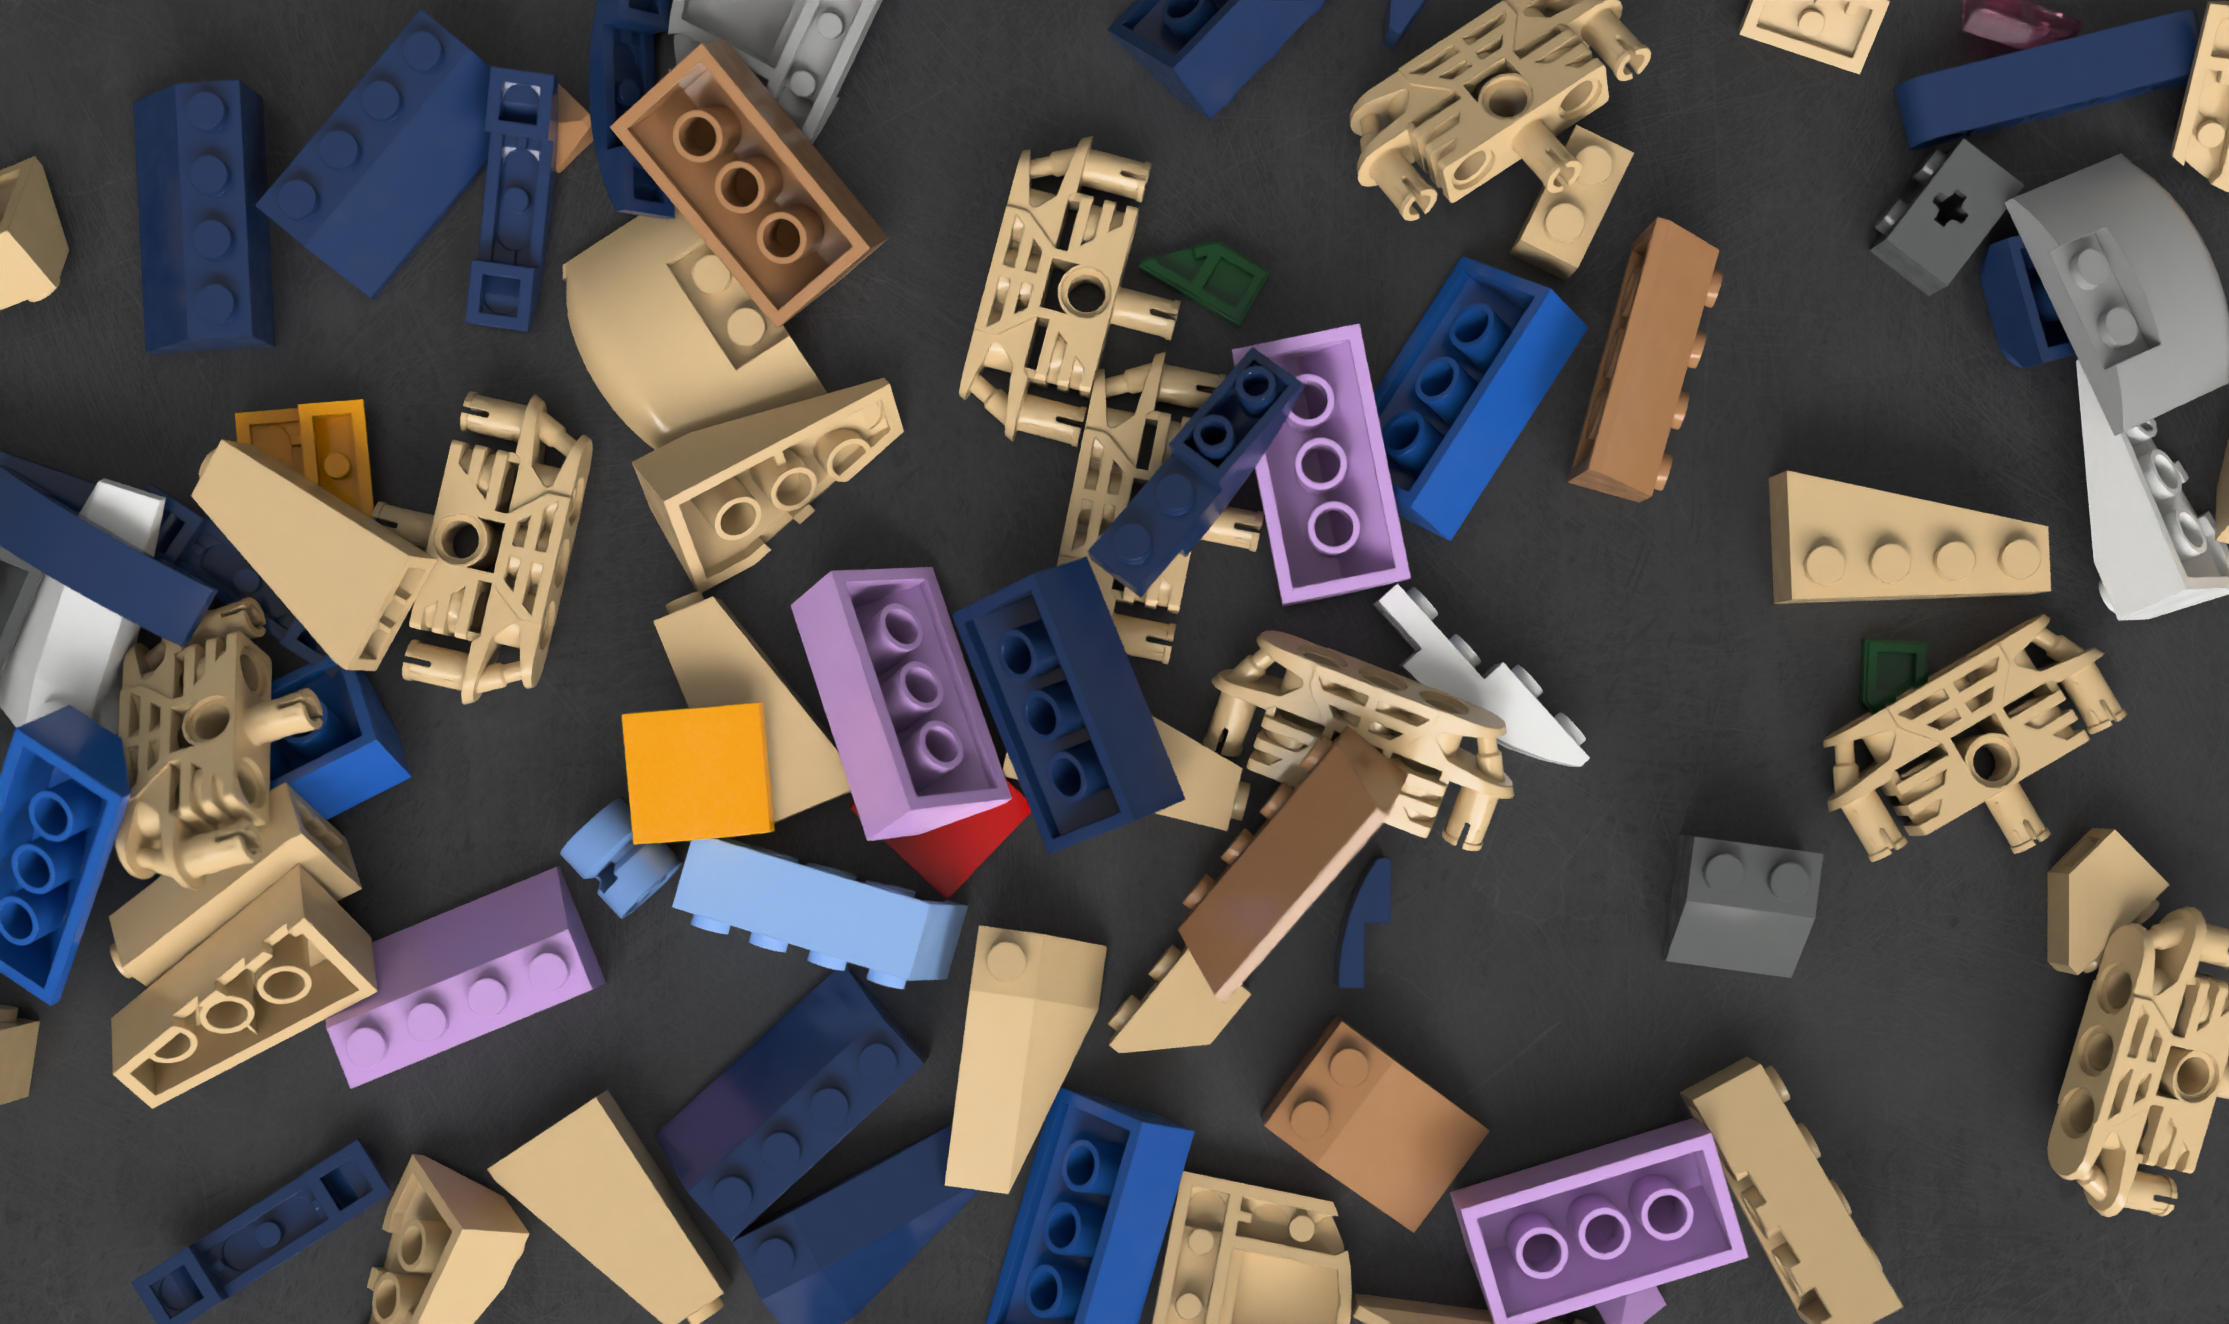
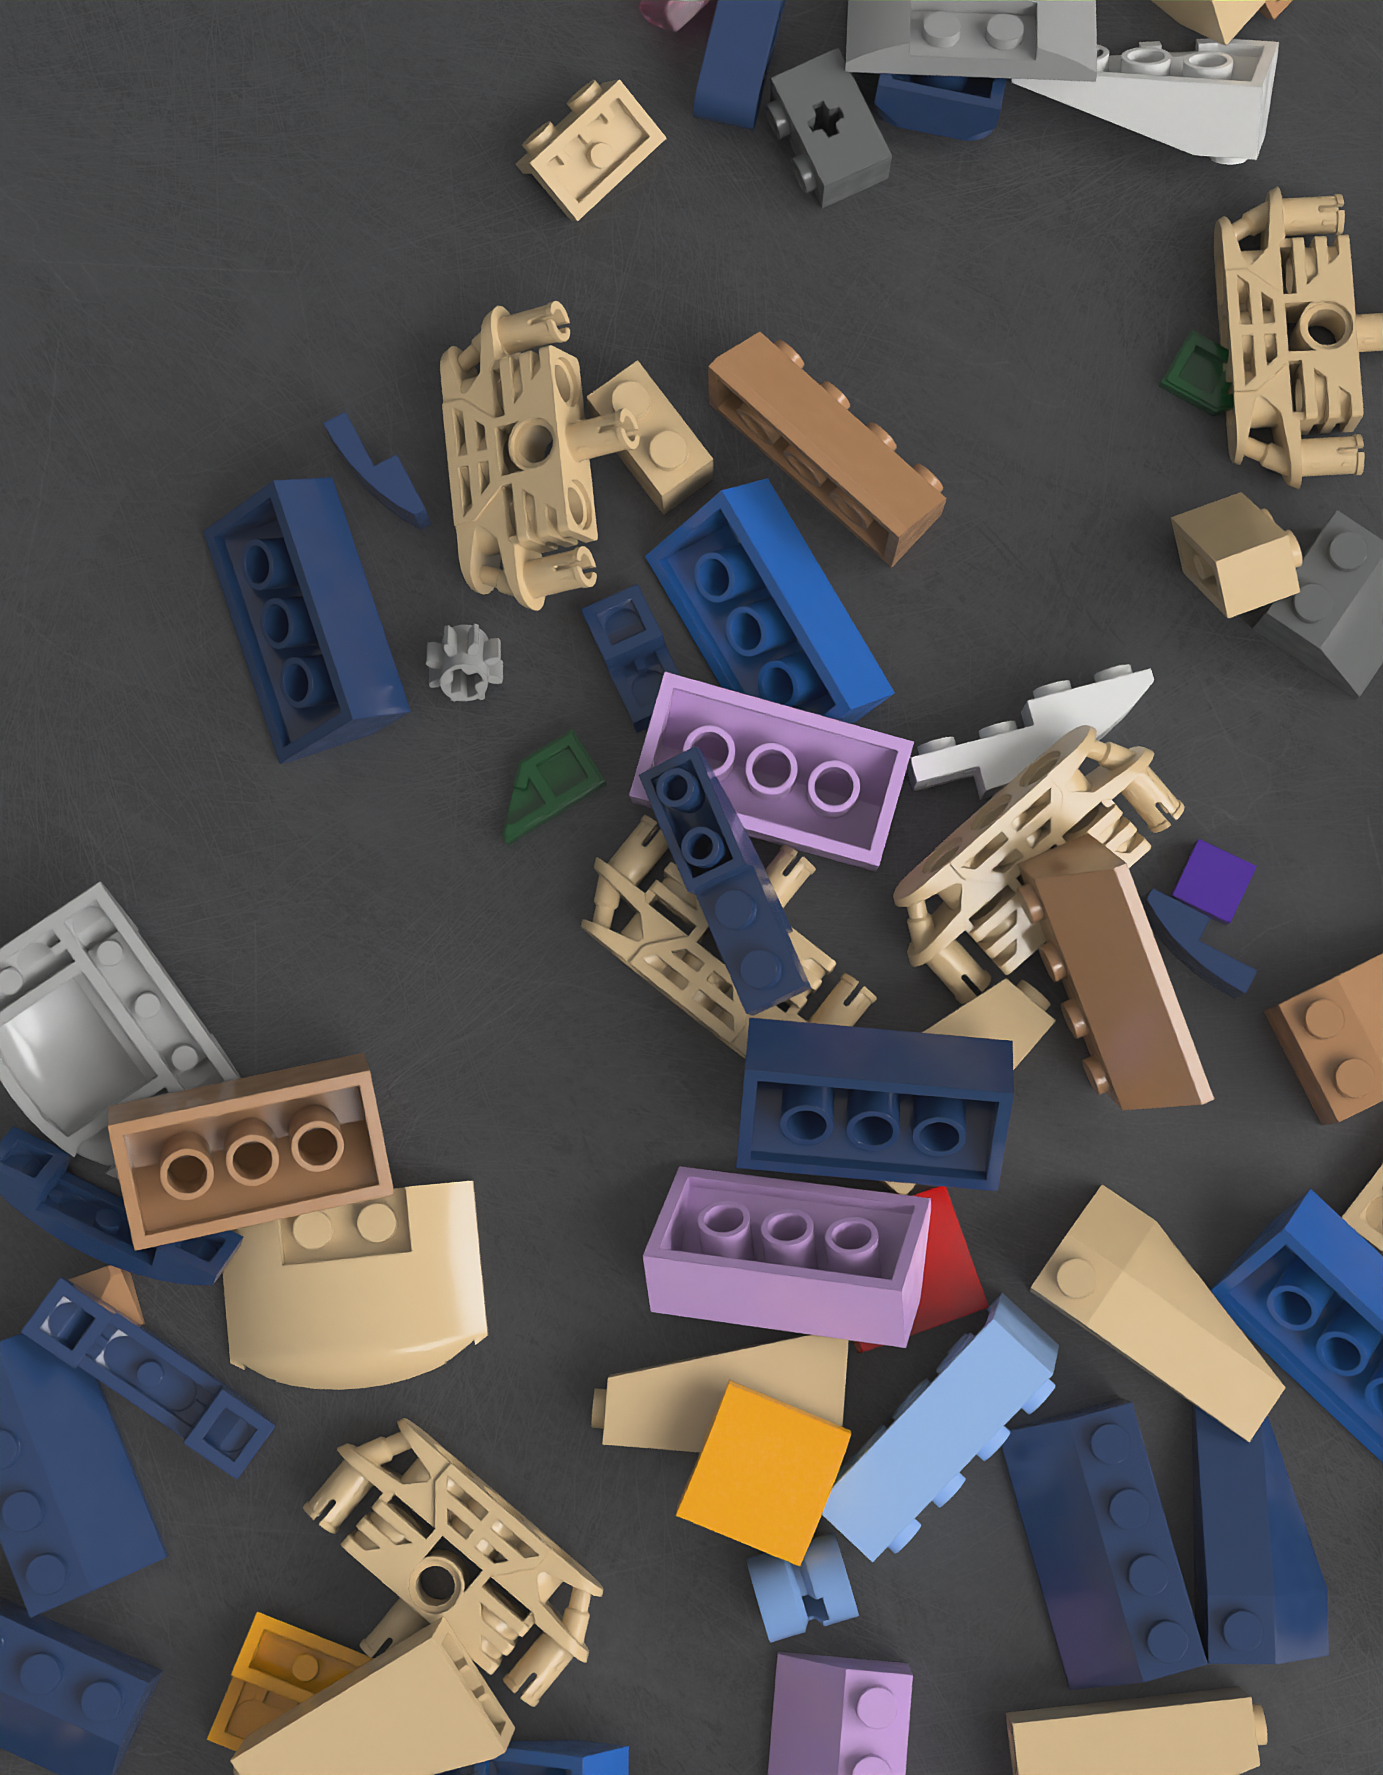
camera: 60 degrees left, 5 degrees down
(745, 479) = (513, 1298): tan wedge -> none
(1021, 279) = (463, 951): tan piece -> none
(1175, 1010) = (1192, 1152): tan slope -> none
(1280, 144) = (464, 662): none -> light grey gear
(1370, 286) = (631, 650): none -> dark blue slope
(1427, 911) = (1213, 881): none -> dark purple tile
(1735, 784) = (1237, 554): none -> tan brick
(1879, 545) = (1085, 330): tan wedge -> none

